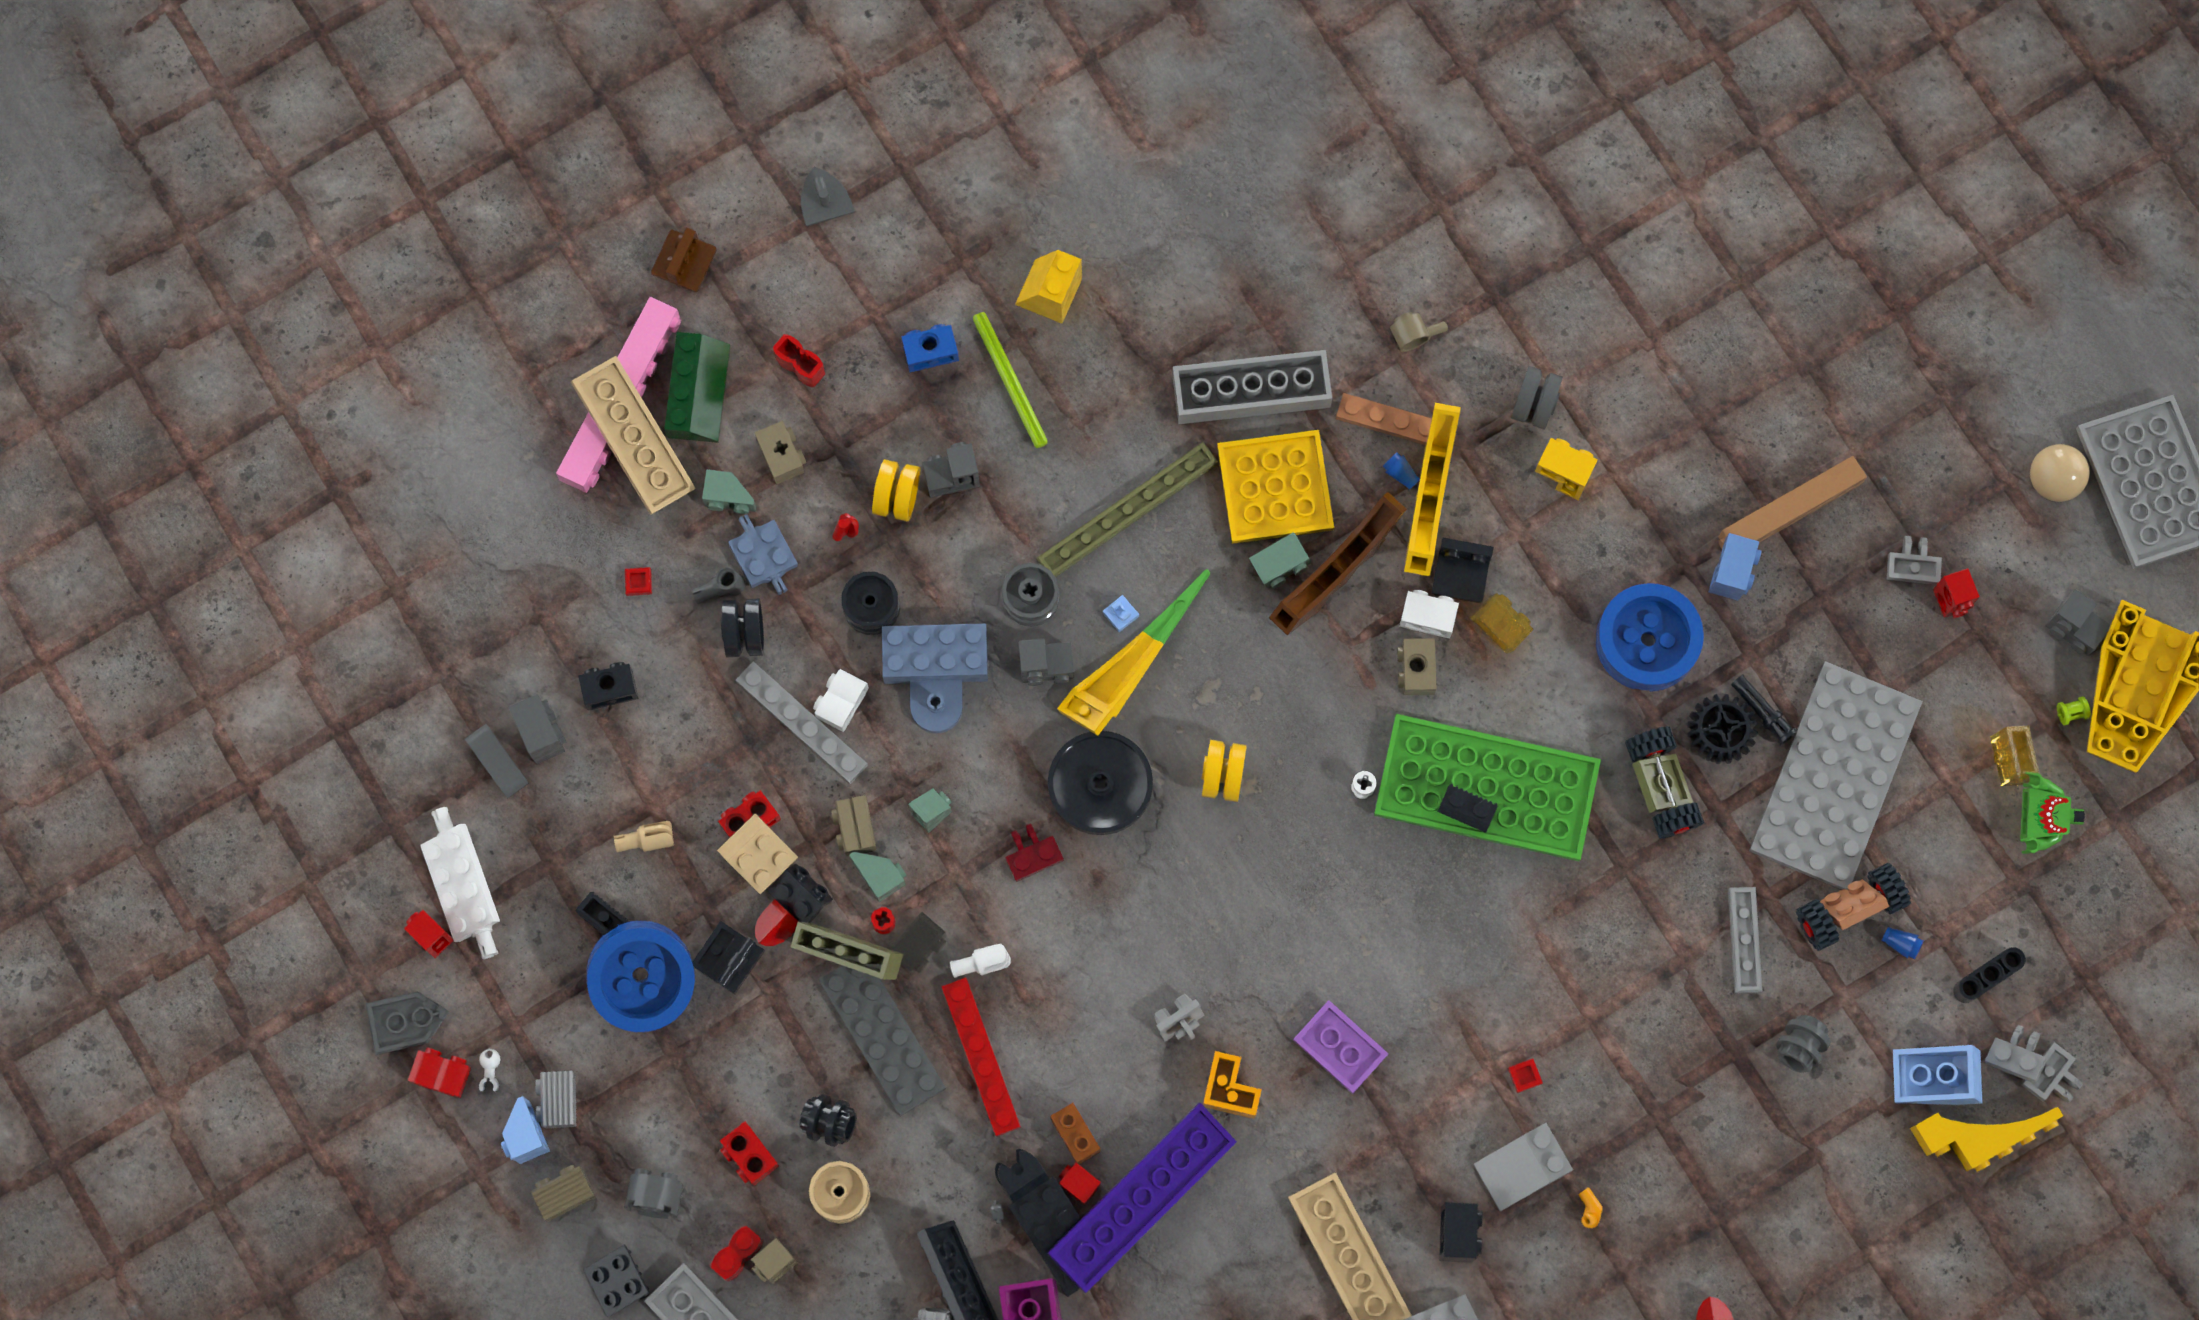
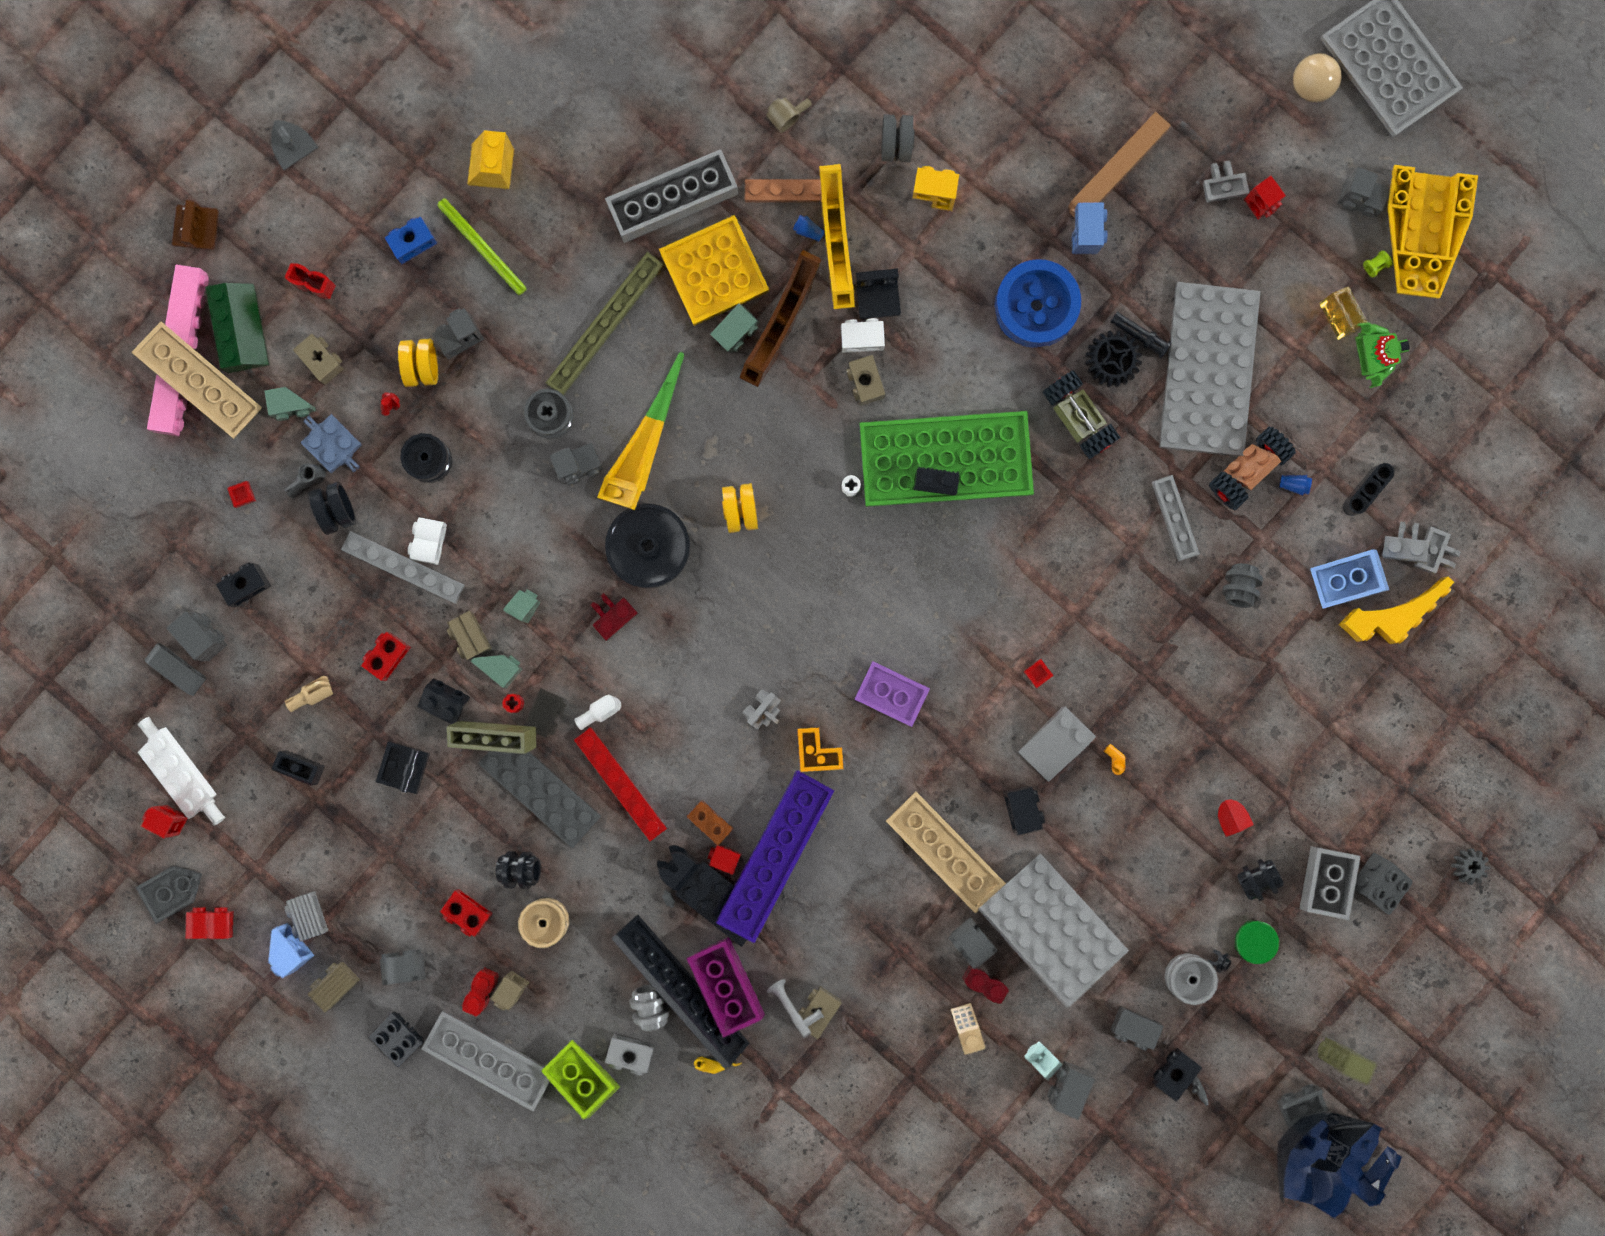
camera: 15 degrees left, 10 degrees up
(489, 1065) = (245, 904): white arm -> none
(647, 1002) = (333, 826): blue brick -> none
(757, 854) = (399, 682): tan brick -> none
(774, 925) = (431, 732): red brick -> none
(935, 665) = (493, 492): sand blue brick -> none
(1120, 613) = (624, 407): light blue tile -> none
(1502, 622) = (921, 326): clear yellow brick -> none

